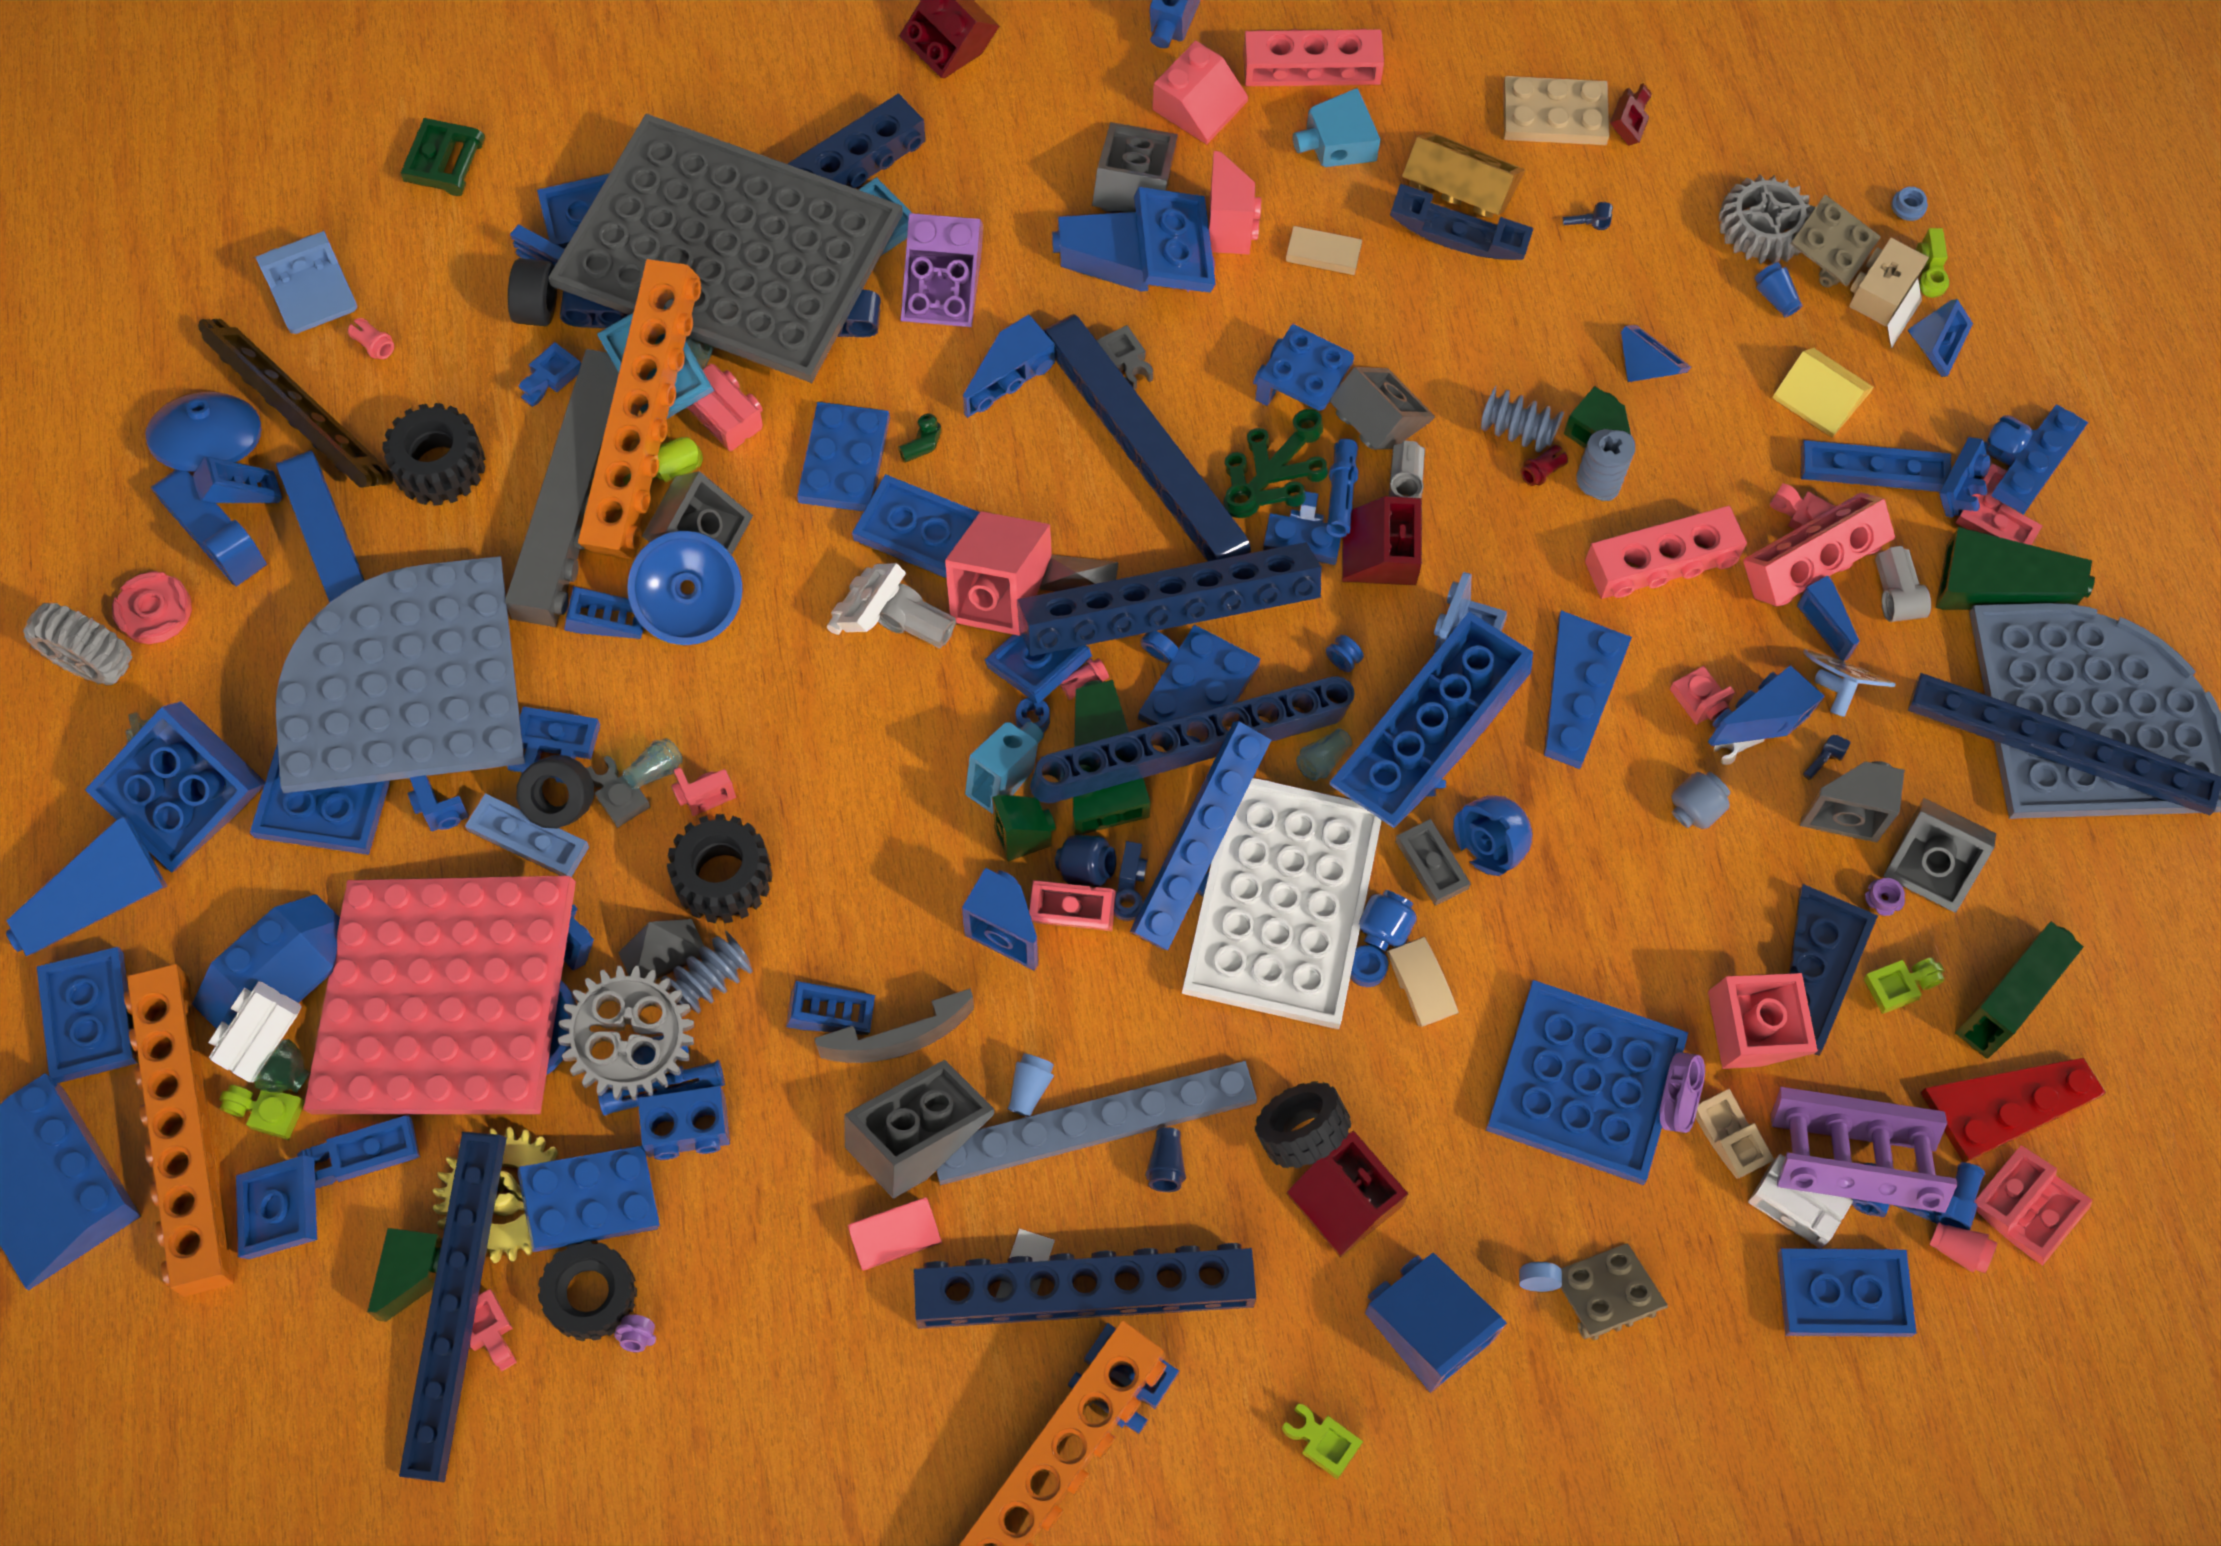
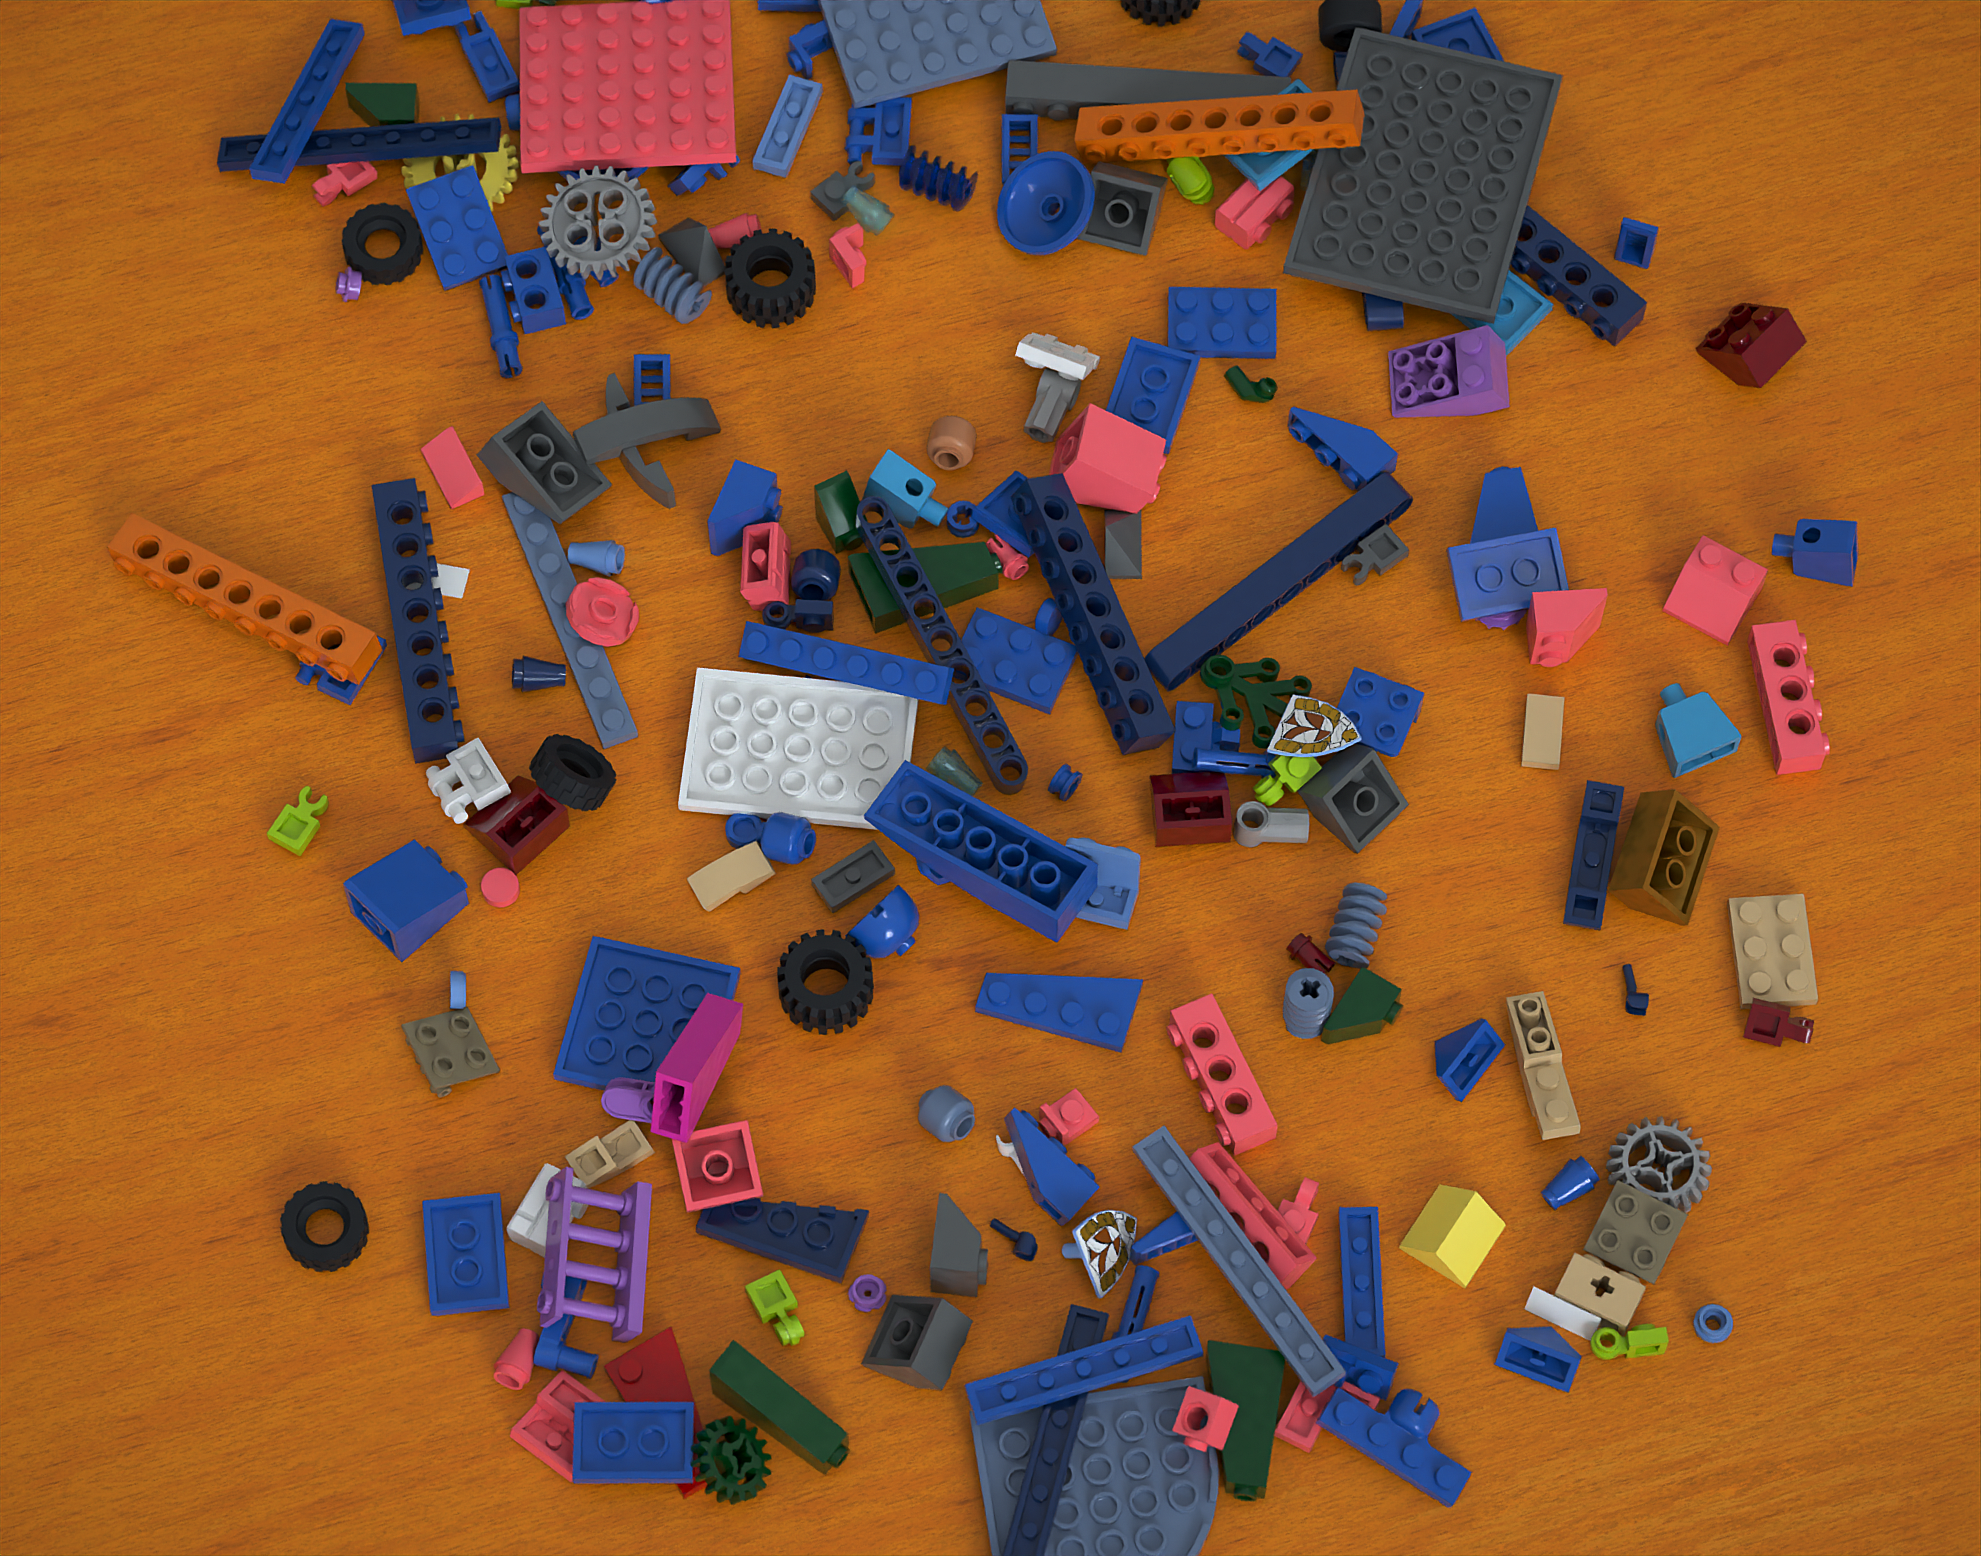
camera: 85 degrees right, 0 degrees up
(382, 1361) = (307, 101): none -> blue plate
(445, 1123) = (512, 106): none -> blue tile
(532, 800) = (828, 136): black tyre -> none
(627, 692) = (935, 180): none -> clear blue piece
(651, 897) = (731, 231): none -> coral cone
(723, 1164) = (503, 337): none -> blue pin
(830, 95) = (1636, 243): none -> blue slope
(887, 1017) = (645, 424): none -> dark grey slope
(946, 713) = (951, 442): none -> nougat head
(1101, 1083) = (602, 612): none -> coral tile
(1132, 160) = (1609, 537): dark grey slope -> none
(1289, 1231) = (478, 774): none -> white plate
(1326, 417) = (1312, 729): none -> shield
(1357, 448) = (1289, 770): none -> lime plate
(1416, 1223) = (500, 887): none -> coral tile
(1563, 868) = (818, 954): none -> black tyre
(1664, 296) = (1542, 1066): none -> tan slope
(1669, 1017) = (694, 1067): none -> dark pink slope
(1846, 1436) = (331, 1255): none -> black tyre
(1876, 549) = (1239, 1261): none -> sand blue plate
(1902, 593) = (1212, 1308): light grey piece -> none
(1915, 661) = (1143, 1283): none -> blue pin
(1991, 696) = (1083, 1370): none -> blue plate
(2021, 591) = (1192, 1411): none -> coral brick
(2068, 1129) = (633, 1442): none -> blue plate
(2079, 1037) = (731, 1460): none -> dark green gear

